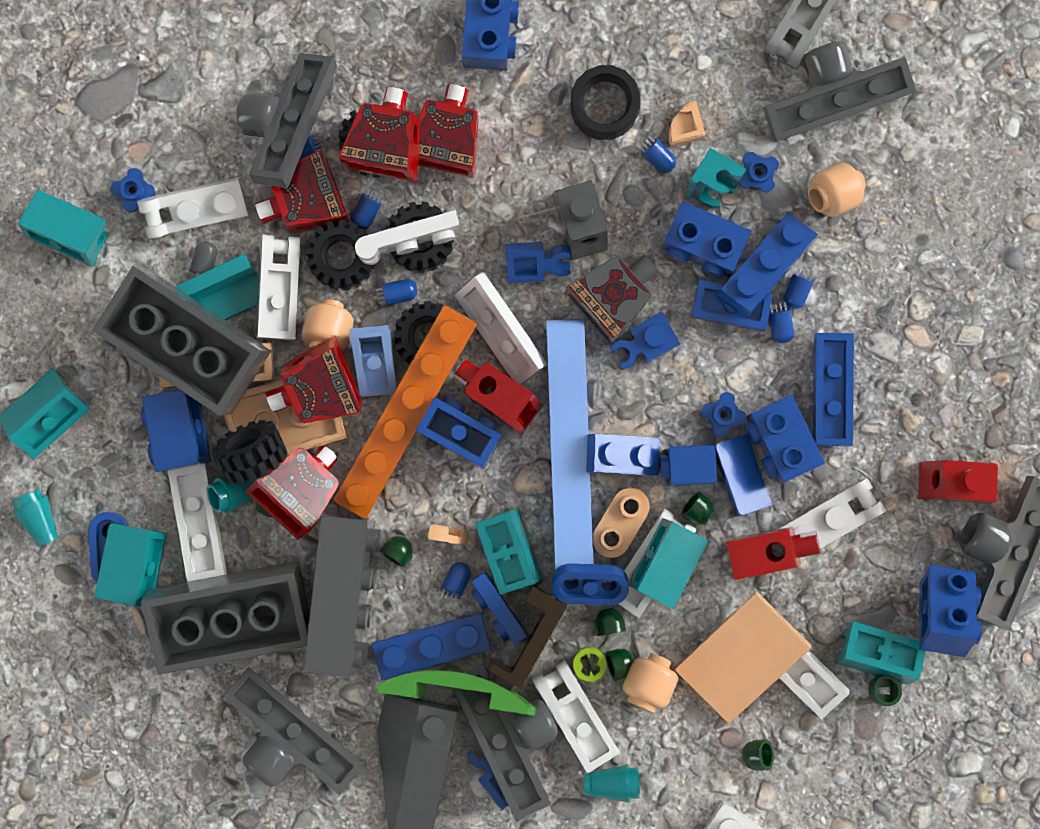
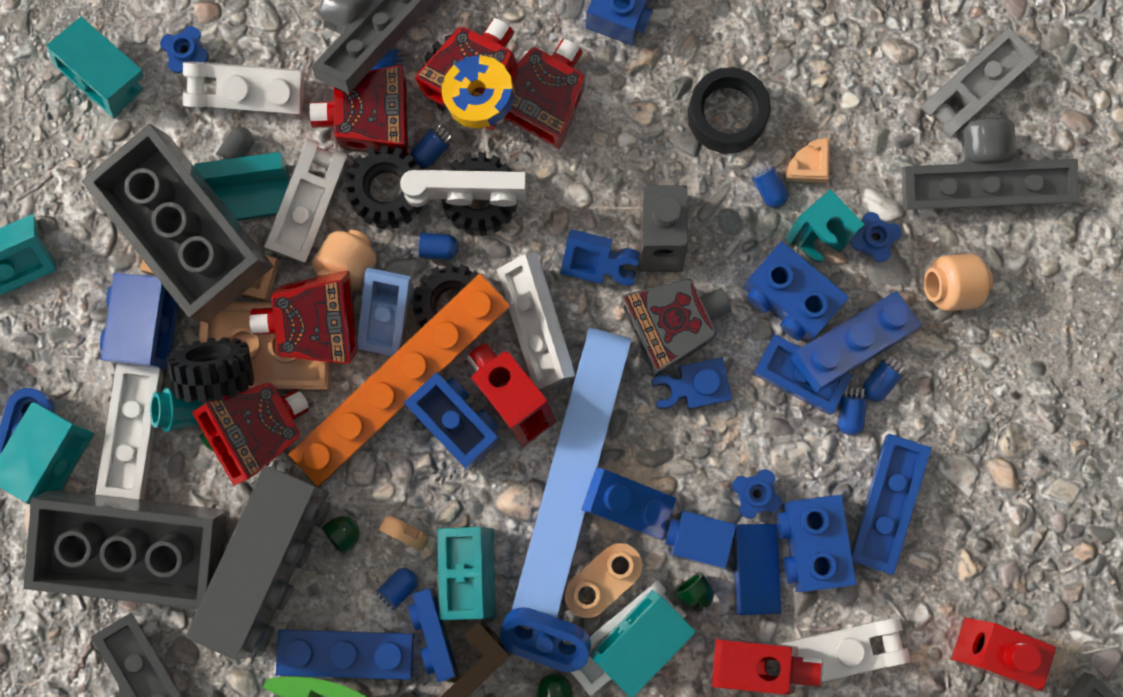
camera: 10 degrees right, 5 degrees down
(391, 139) = (472, 74): none -> yellow piece

